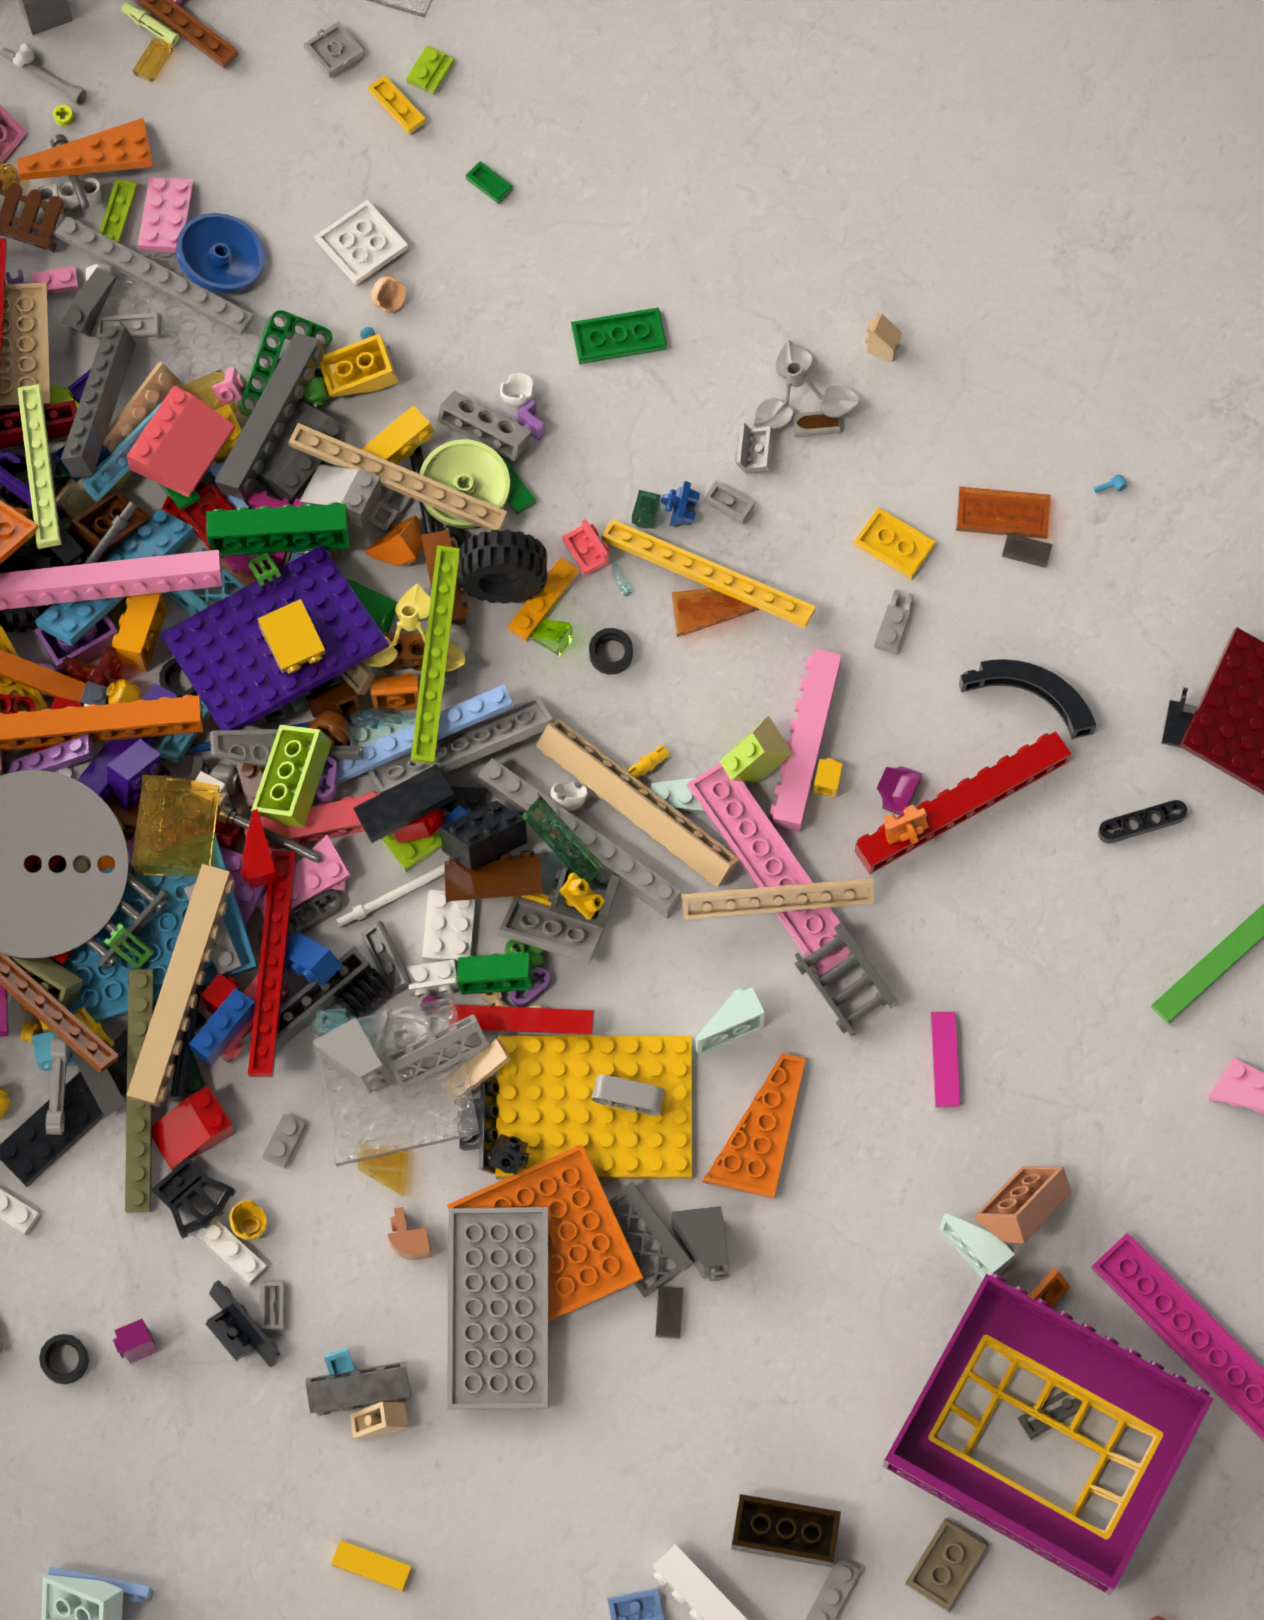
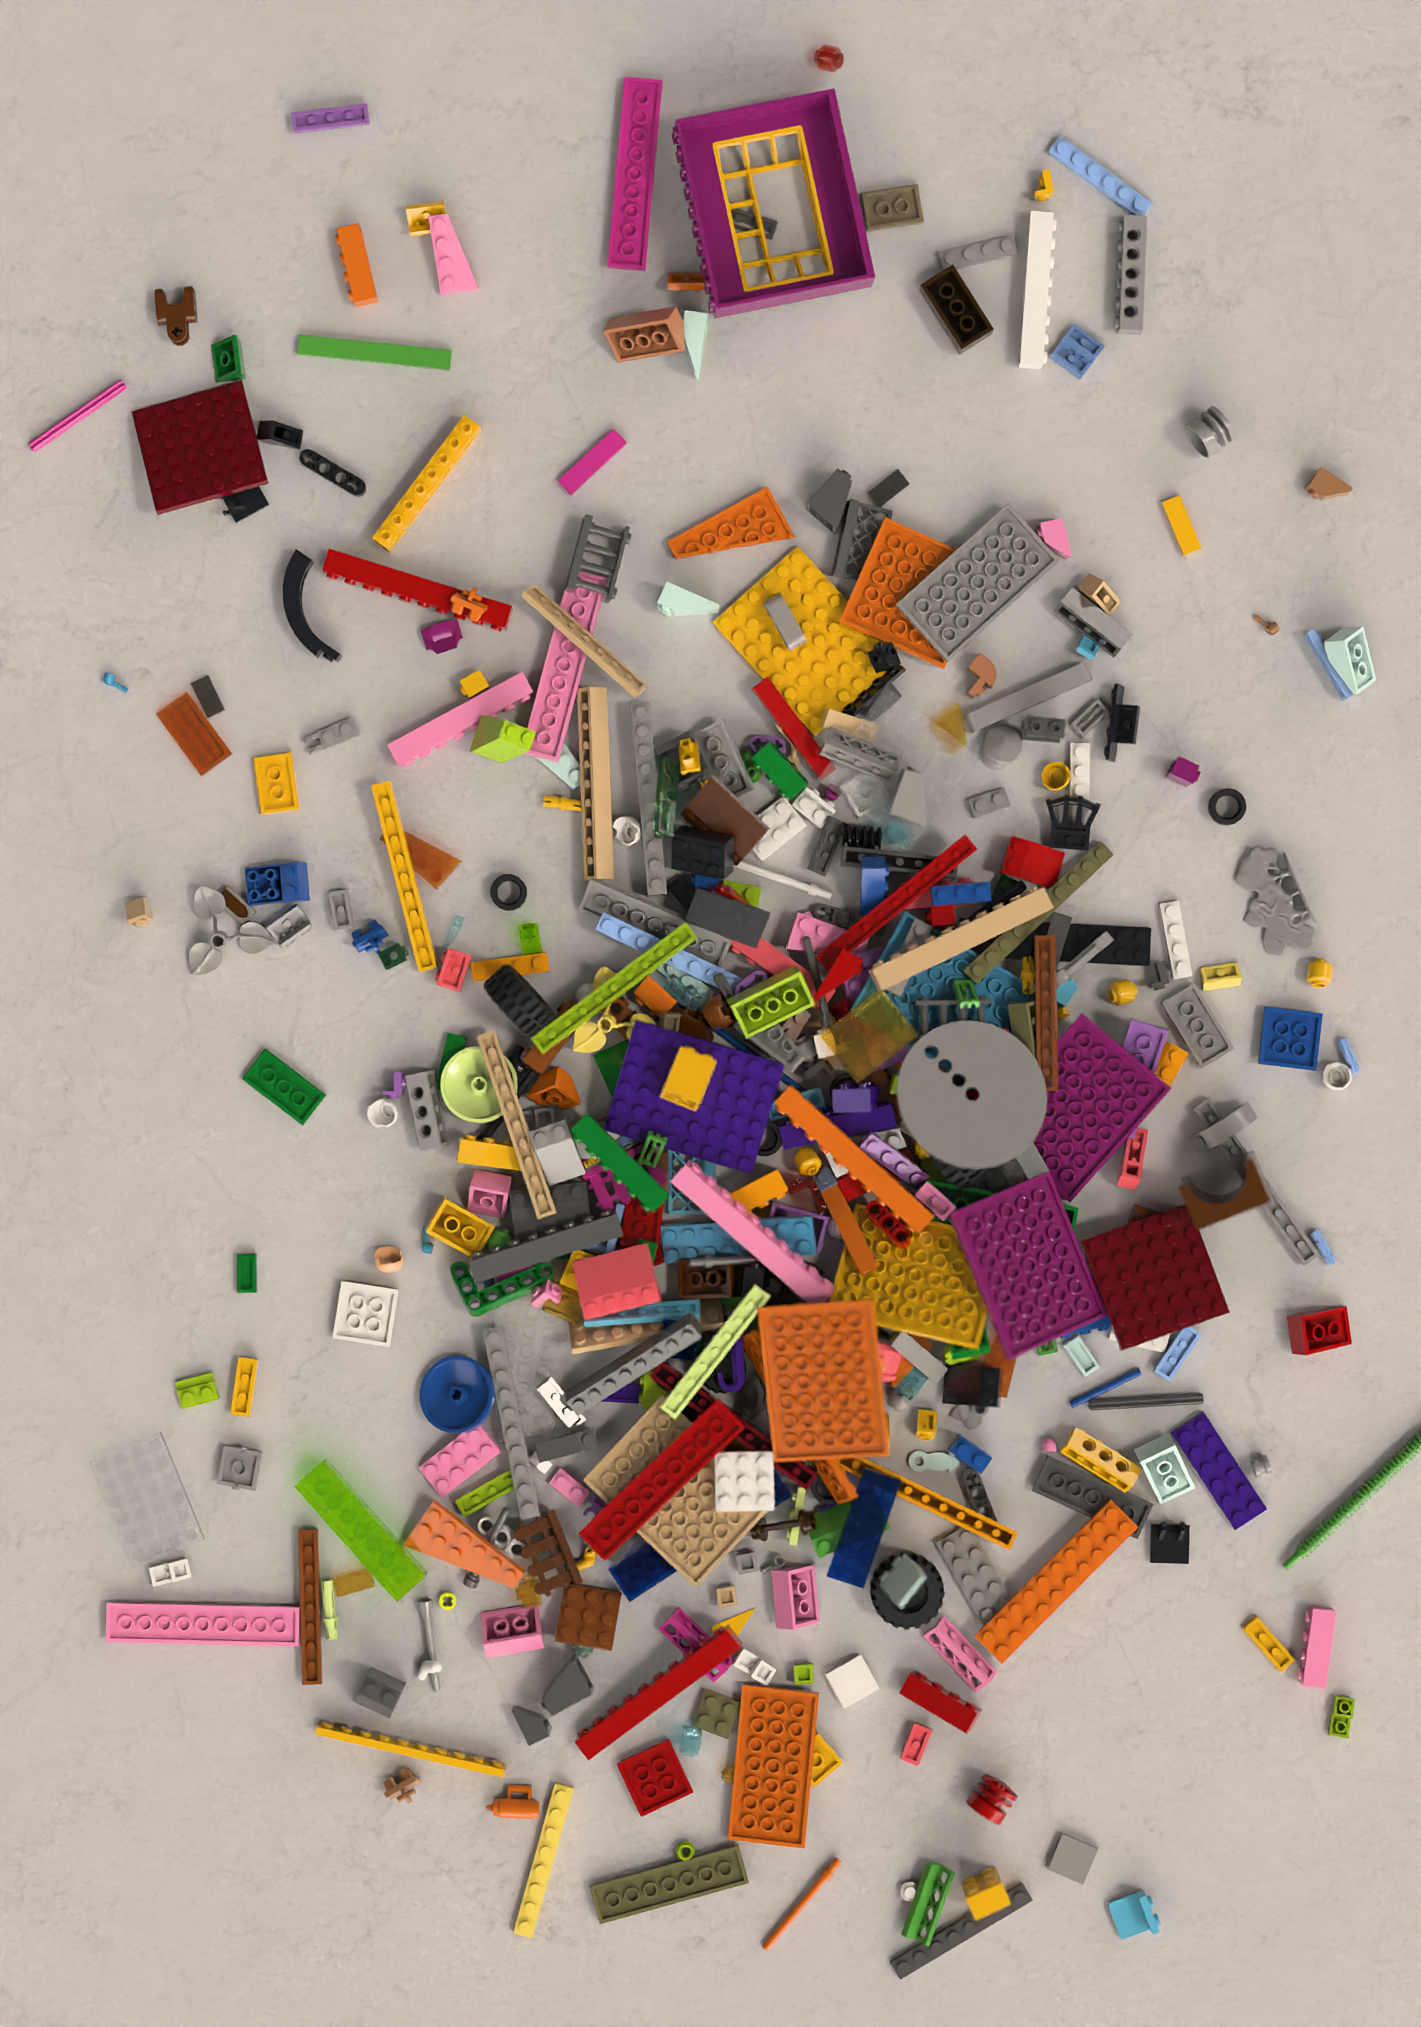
camera: 130 degrees left, 20 degrees up
(188, 95) = (361, 1530): none -> clear neon green brick
(189, 1561) = (1271, 629): none -> medium nougat hand
(301, 1242) = (1043, 729): none -> dark grey panel
(325, 1197) = (1000, 747): none -> light grey piece
(345, 1264) = (1028, 697): none -> light grey beam
(364, 418) = (489, 1193): none -> bright pink slope
(474, 1427) = (1055, 537): none -> bright pink slope
(801, 469) = (277, 883): none -> blue slope
(1057, 892) = (427, 483): none -> yellow brick
(1220, 803) = (279, 434): none -> black slope

